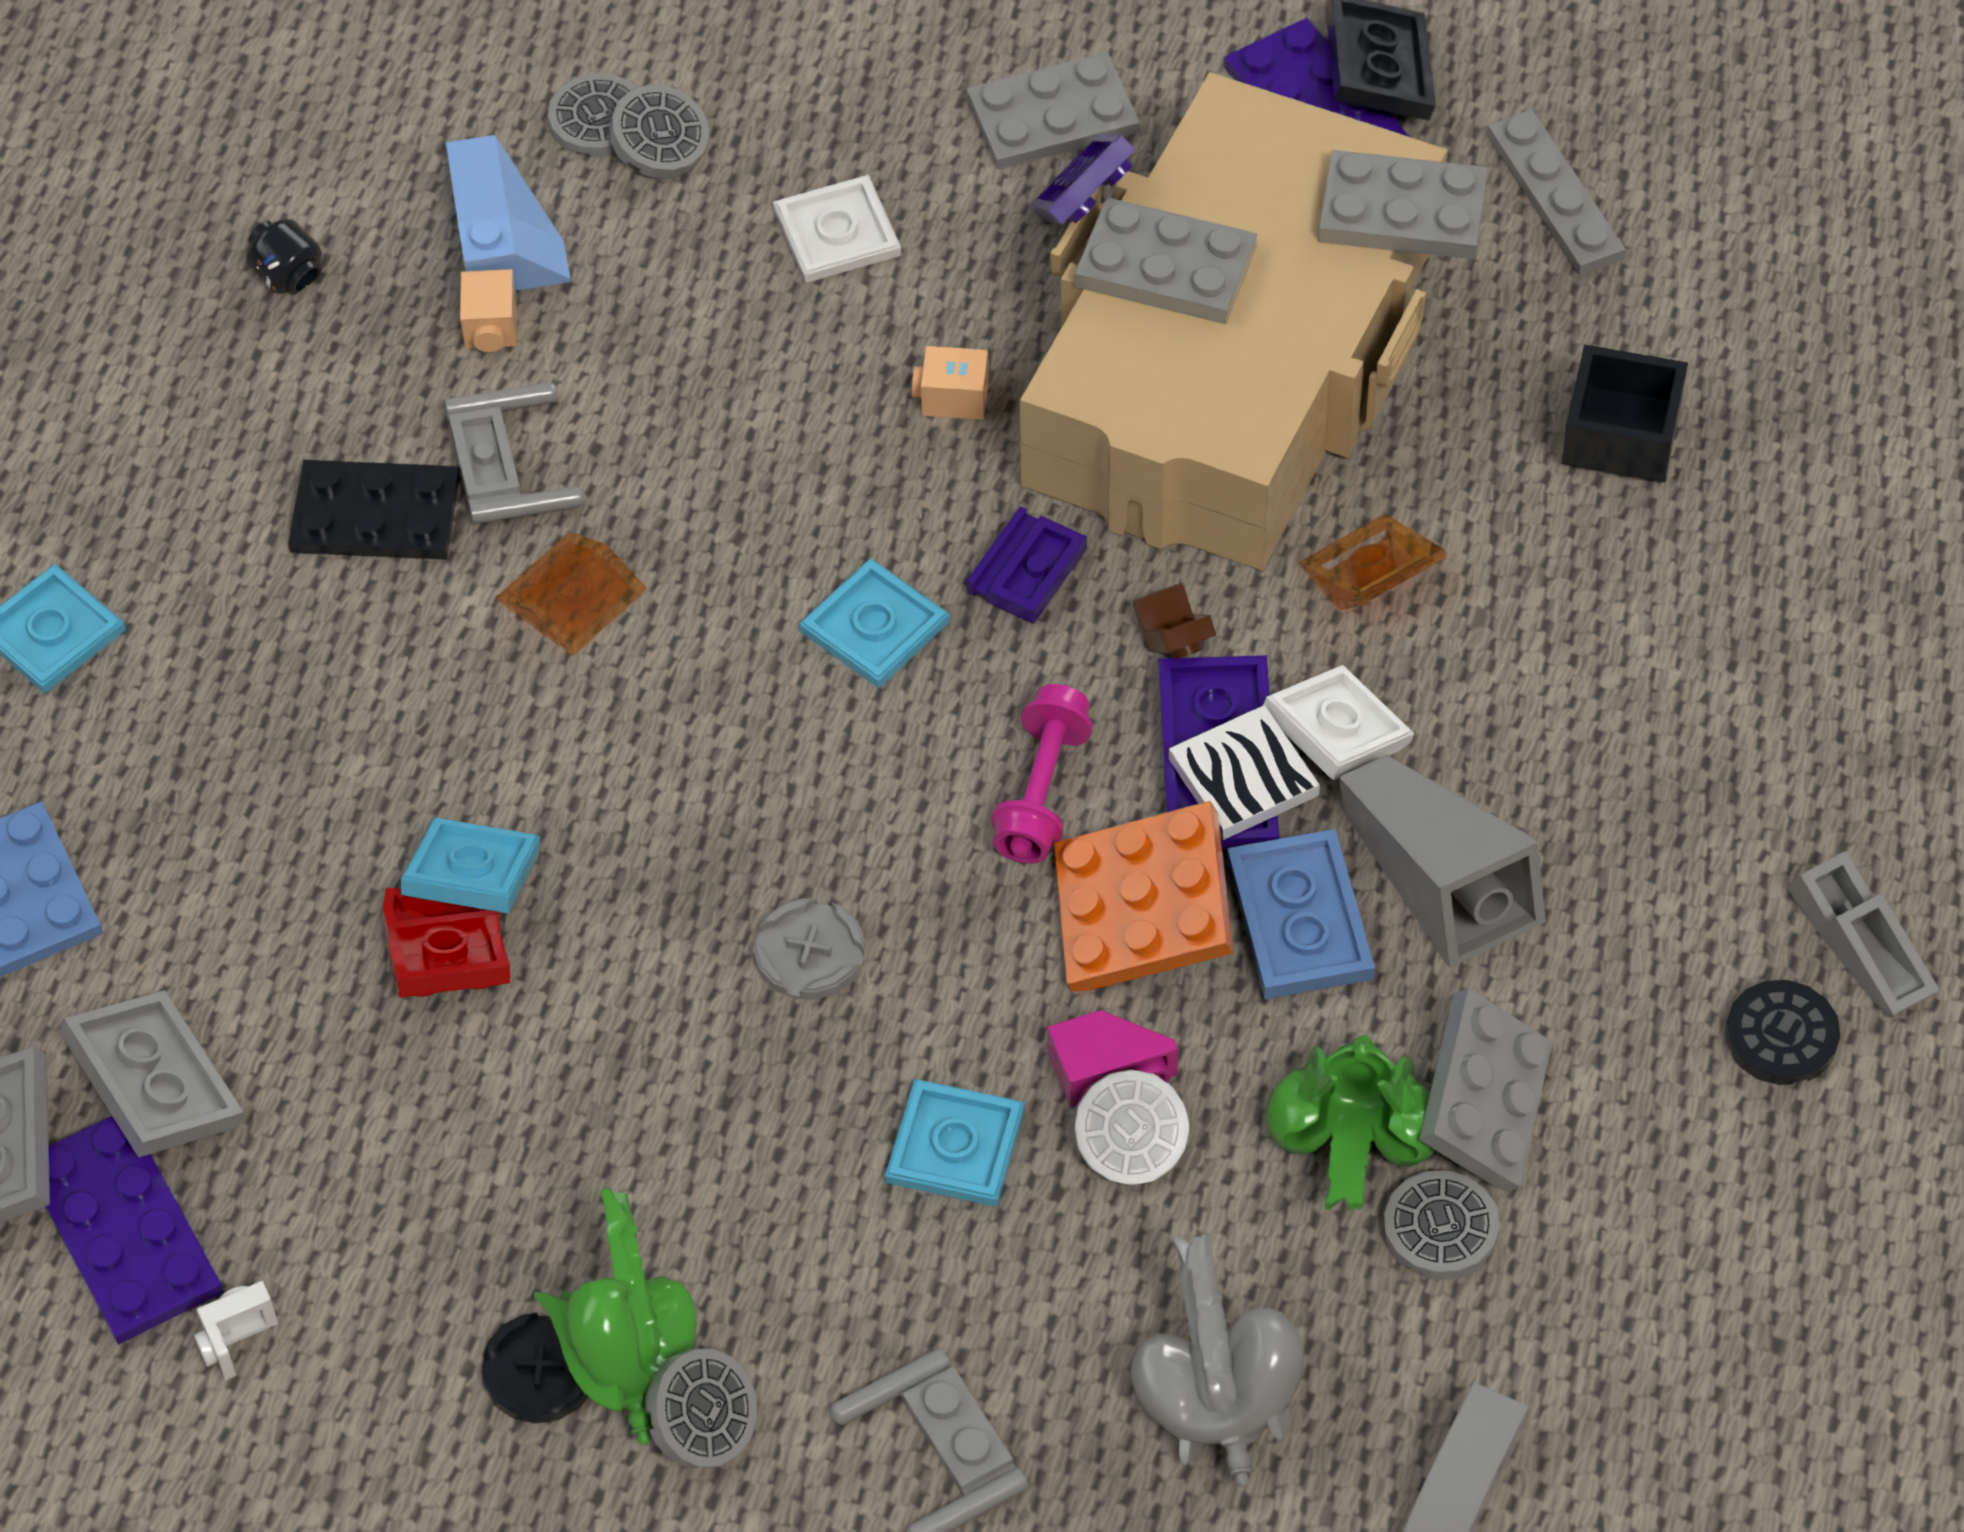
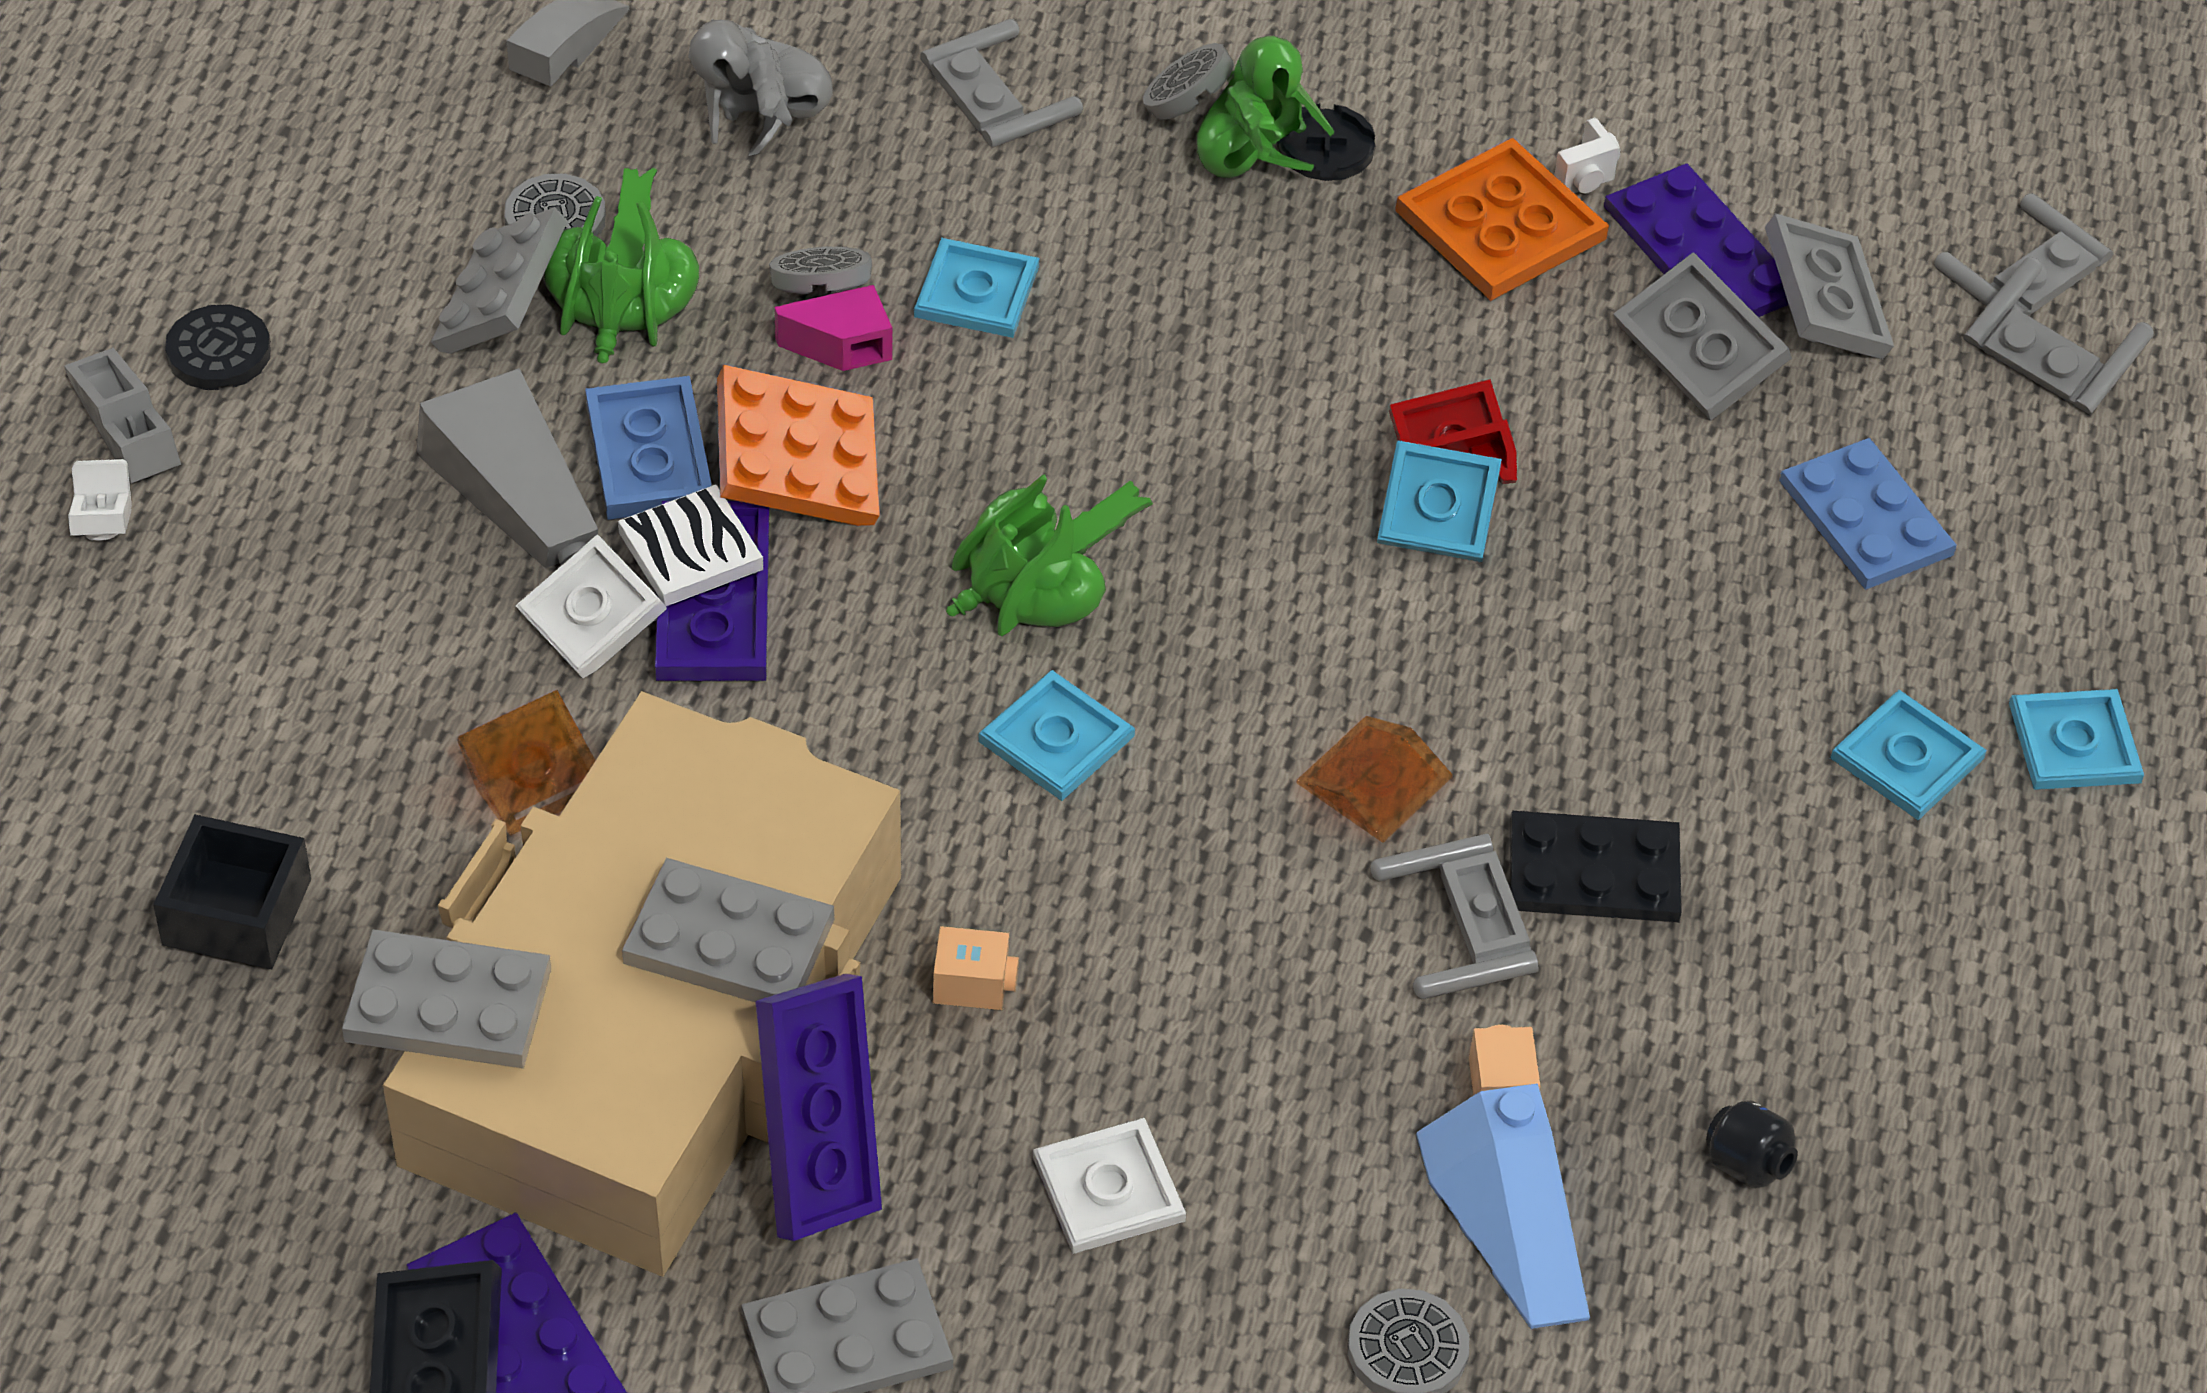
camera: 175 degrees right, 5 degrees down
(348, 1248) = (1501, 218): none -> orange plate
(659, 131) = (1329, 1301): light grey tile -> none
(809, 949) = (1112, 442): light grey tile -> none
(897, 770) = (1032, 568): none -> bright green hair
(1025, 826) = (871, 606): dark pink piece -> none
(1027, 565) = (910, 763): dark purple plate -> none
(1170, 624) = (745, 690): reddish brown bracket -> none
(1556, 192) = (250, 1209): light grey plate -> none
(1854, 818) = (100, 499): none -> white bracket

